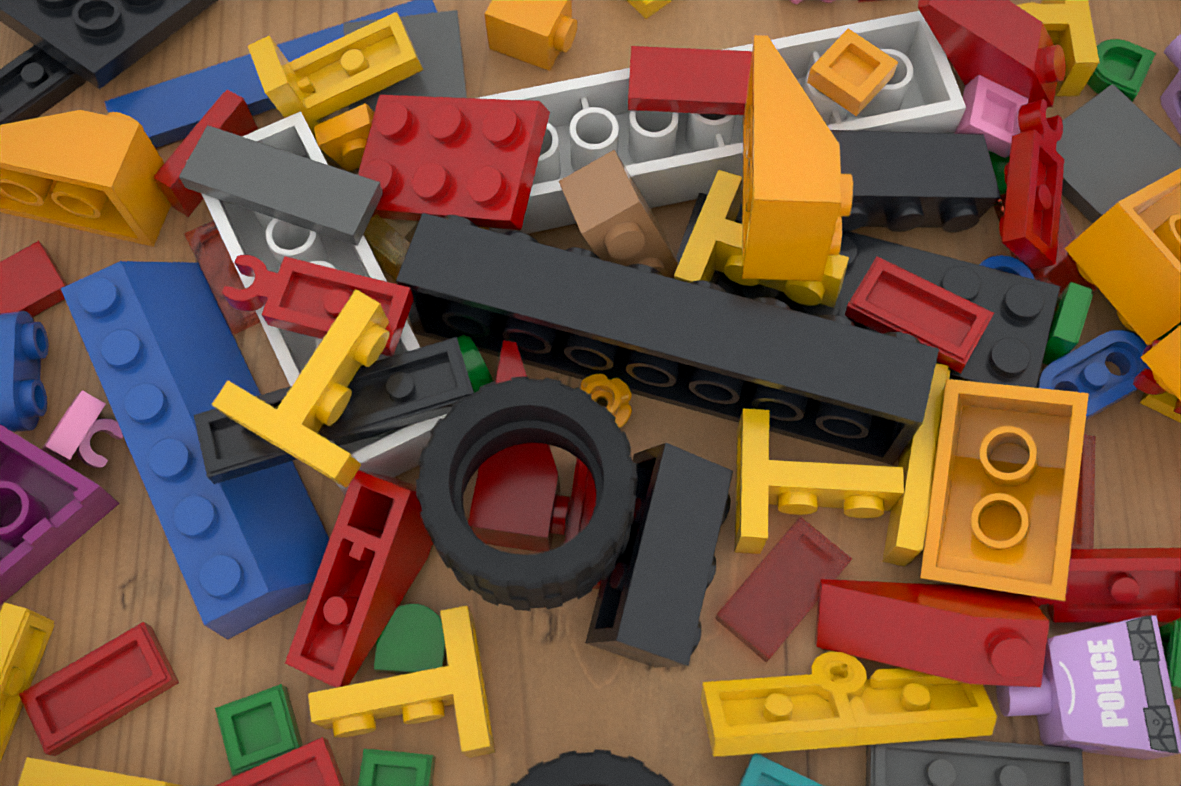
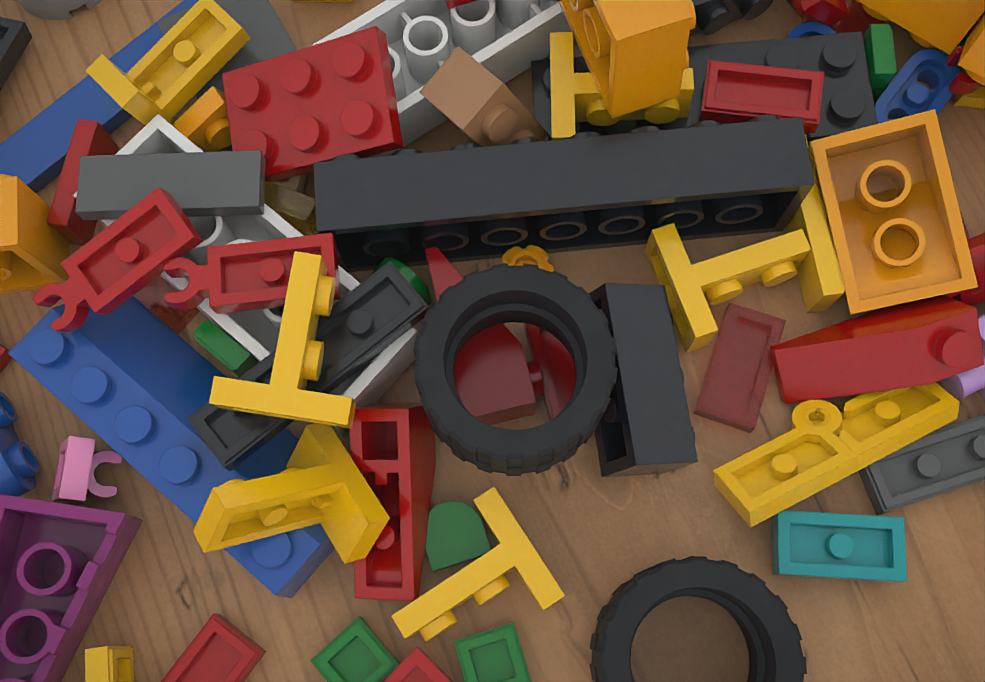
camera: 20 degrees left, 5 degrees up
(200, 238) = (120, 260): none -> red plate
(264, 360) = (224, 348): none -> green tile
(285, 537) = (316, 488): none -> yellow bracket

